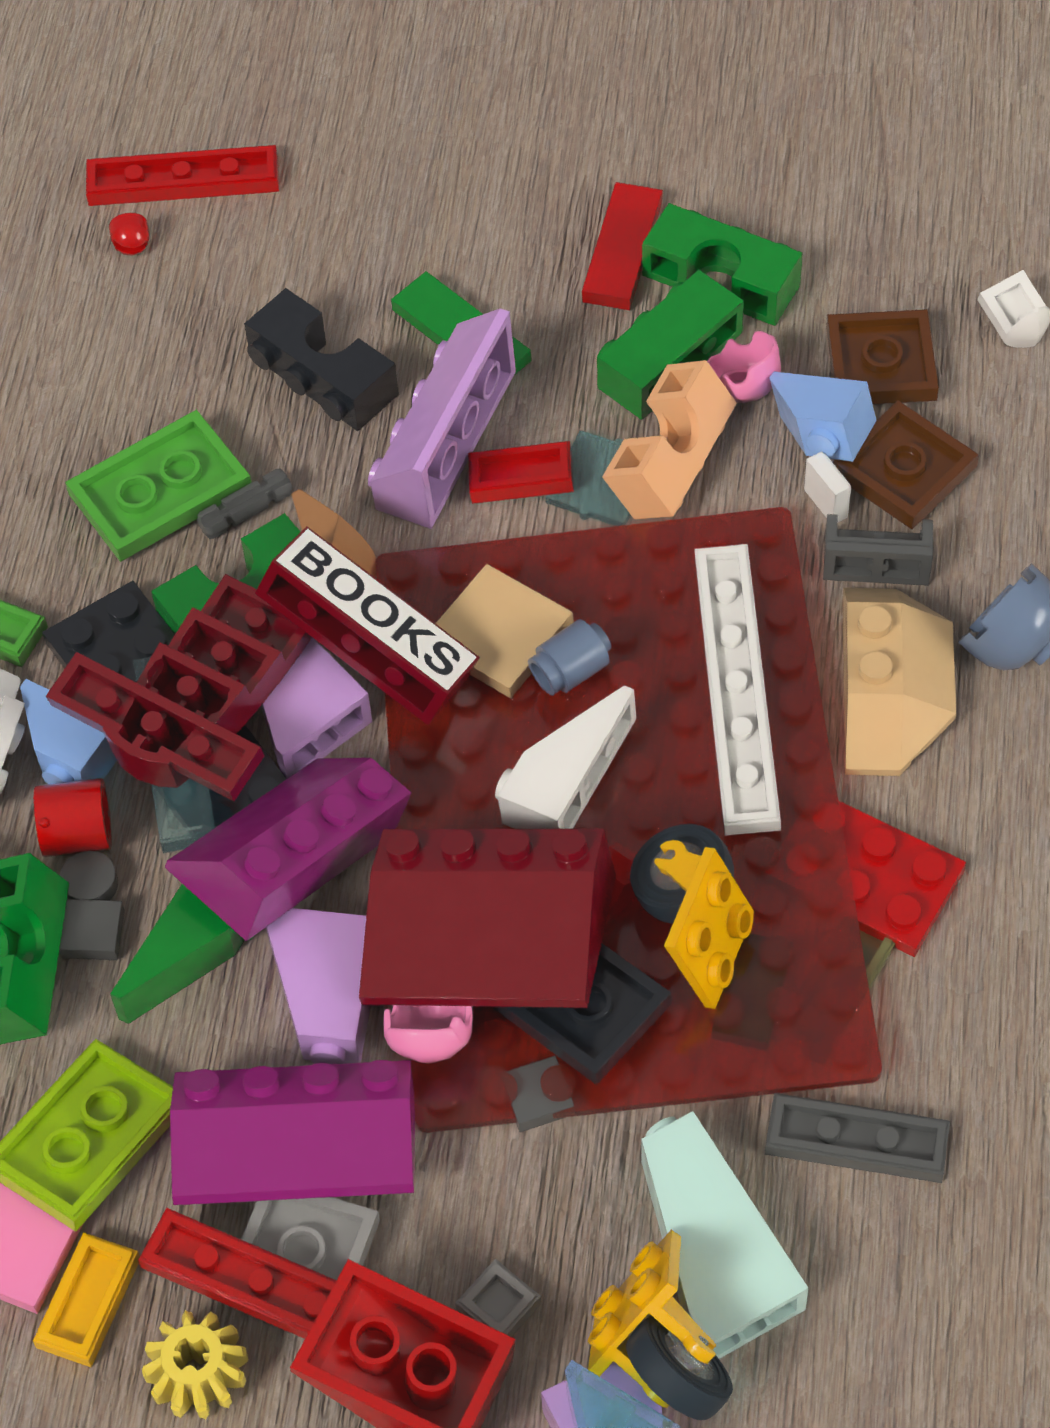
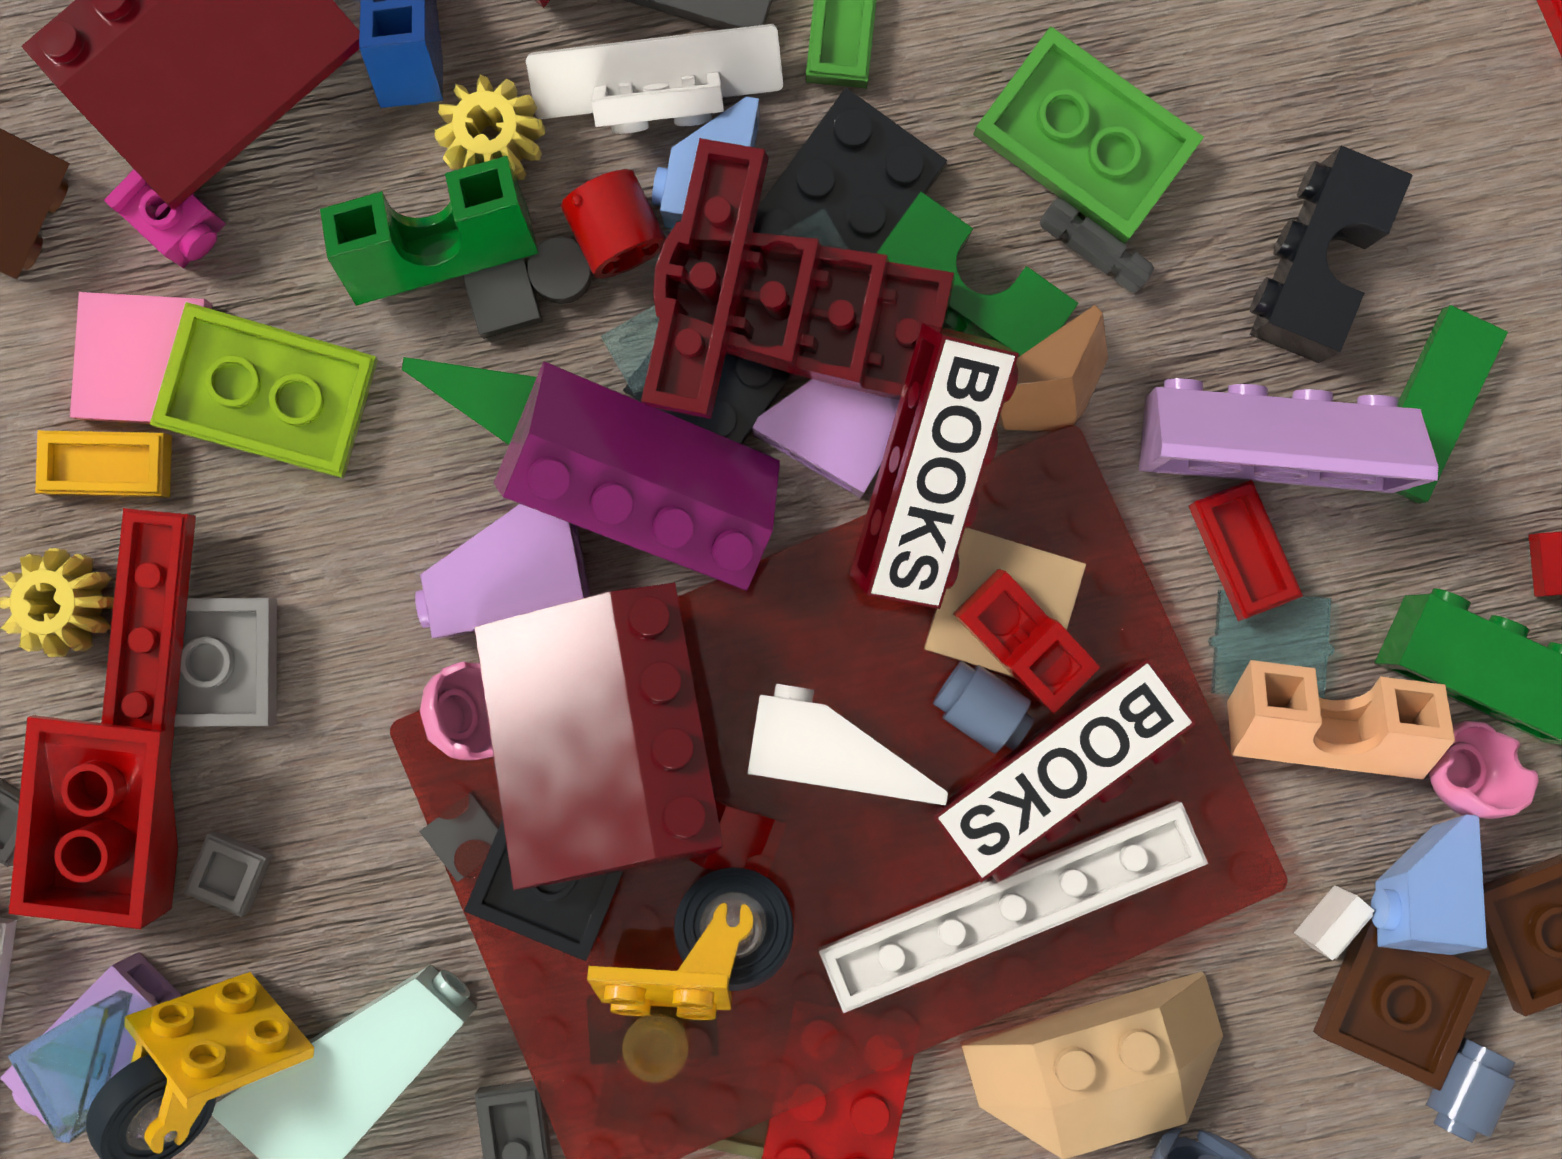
camera: 70 degrees right, 30 degrees up
(292, 1132) = (310, 610): magenta slope -> none
(536, 611) = (1026, 640): none -> red slope
(639, 618) = (1063, 769): none -> brick
(764, 969) = (655, 1048): none -> clear yellow plate
(878, 555) = (1267, 1005): dark grey hinge -> none
(988, 435) = (1473, 1092): none -> sand blue brick

